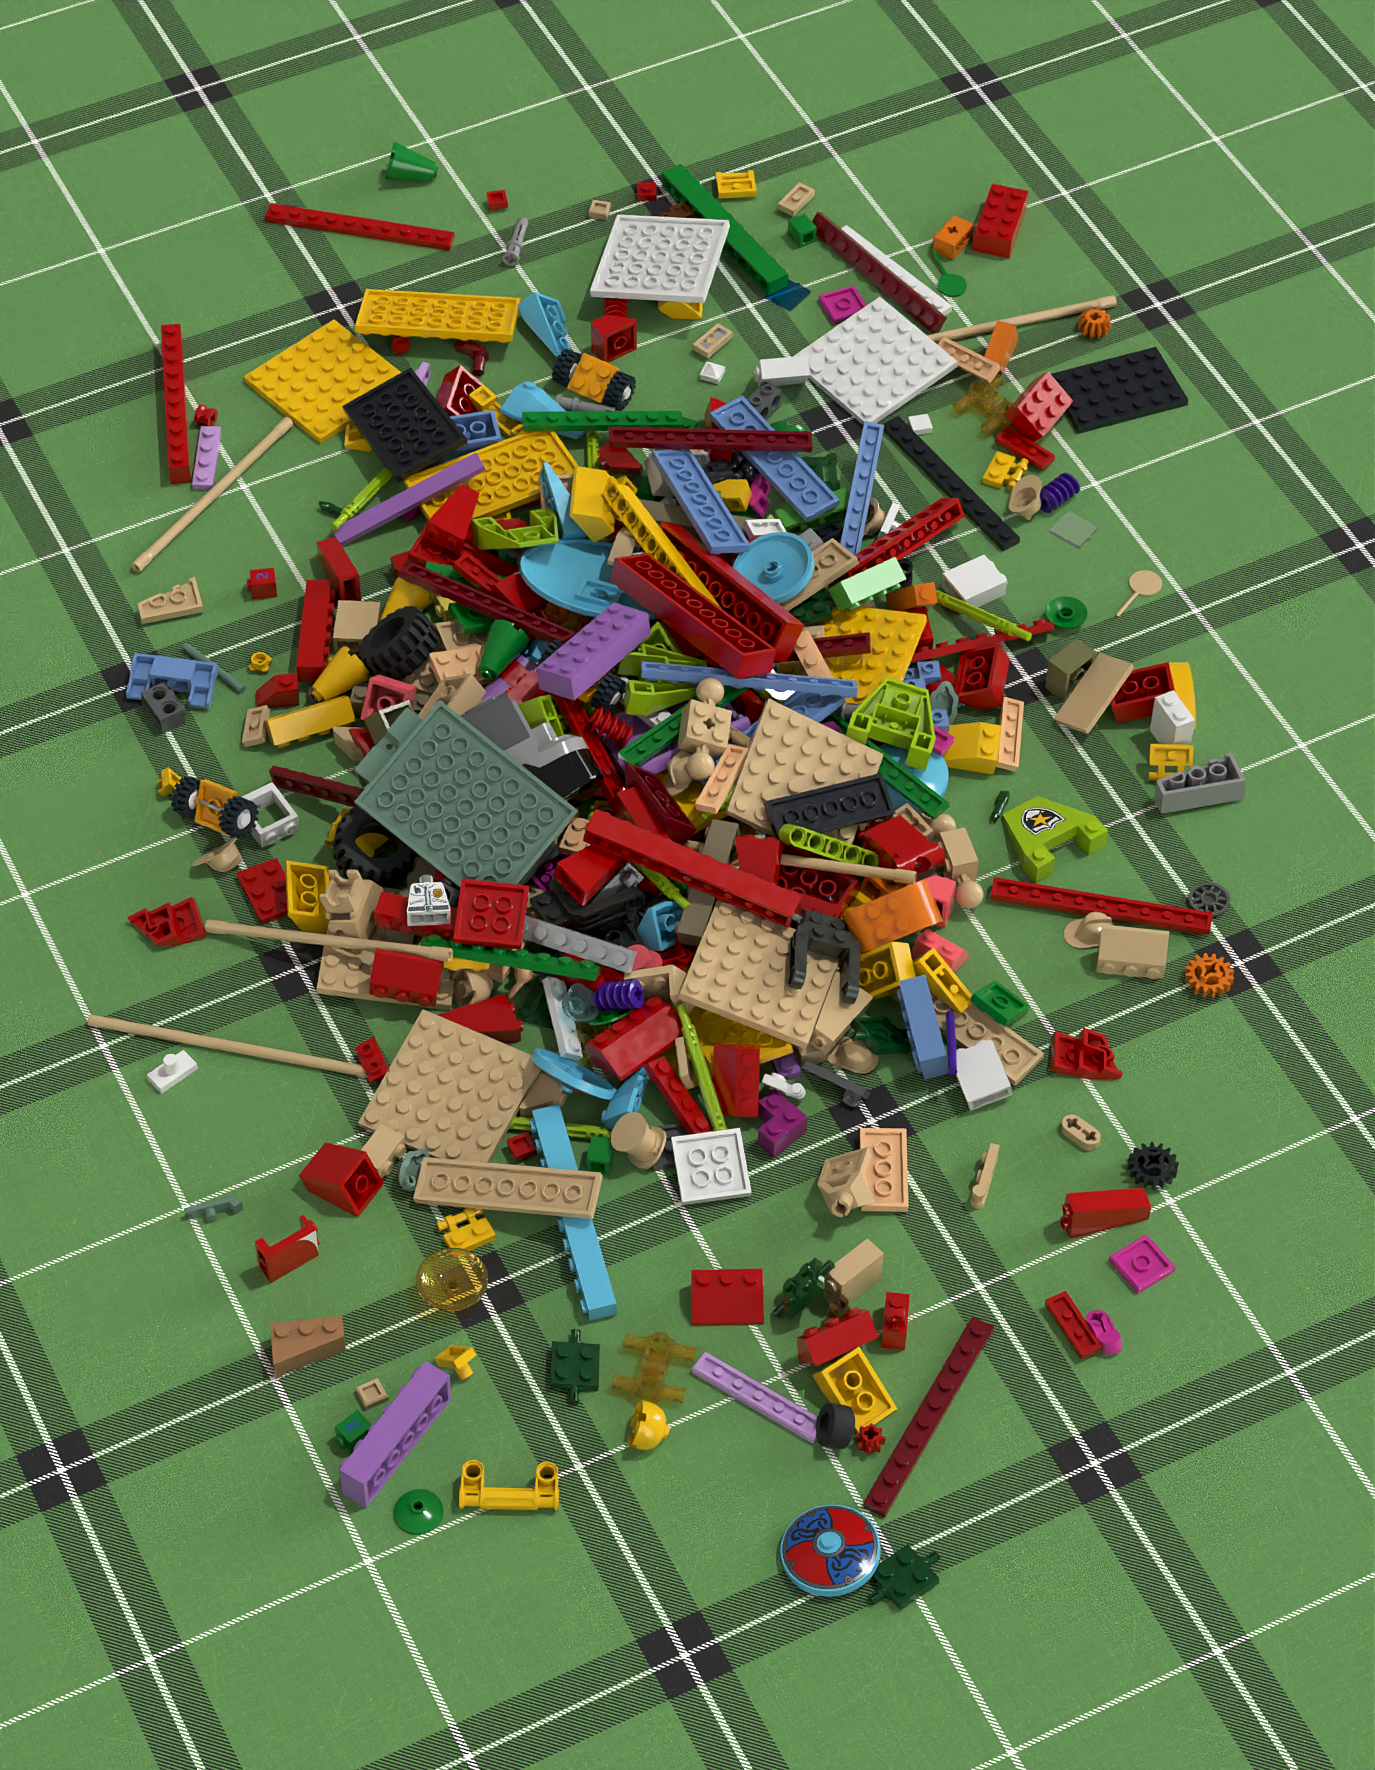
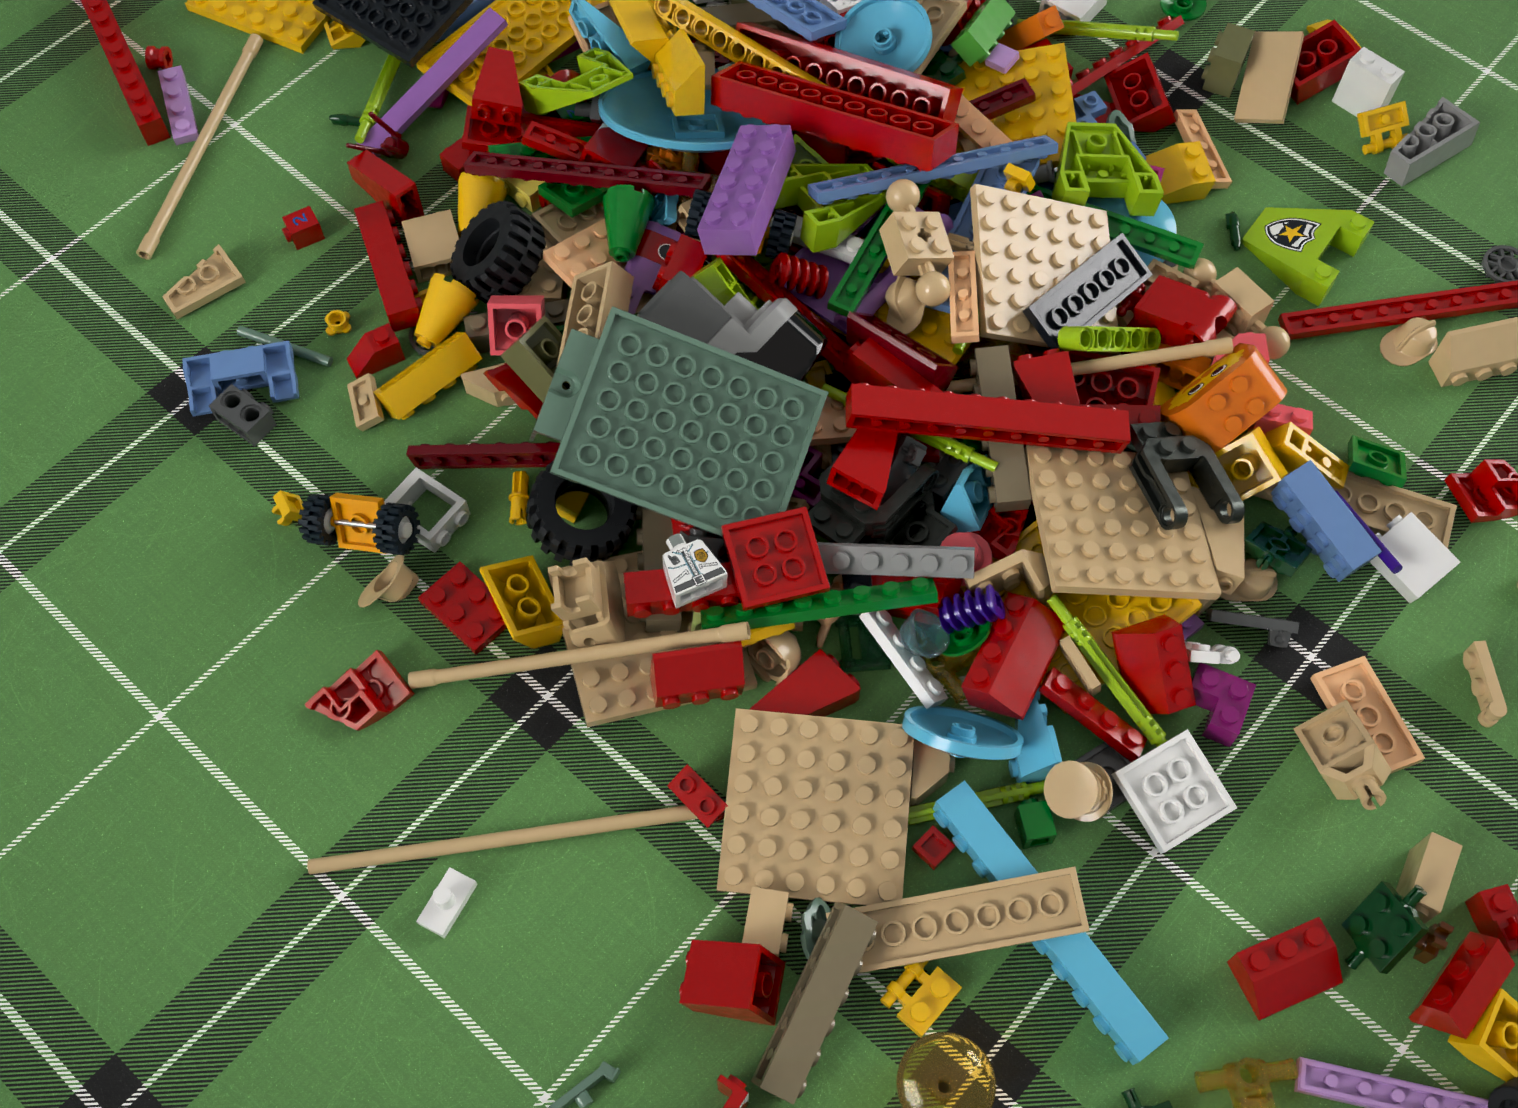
camera: 20 degrees left, 10 degrees up
(358, 539) = (391, 146): none -> dark red plant
(388, 1201) = (814, 1003): none -> dark tan brick
(595, 552) = (680, 75): none -> yellow slope
(811, 707) = (1018, 179): none -> yellow tile
(868, 612) = (1002, 58): none -> lavender tile

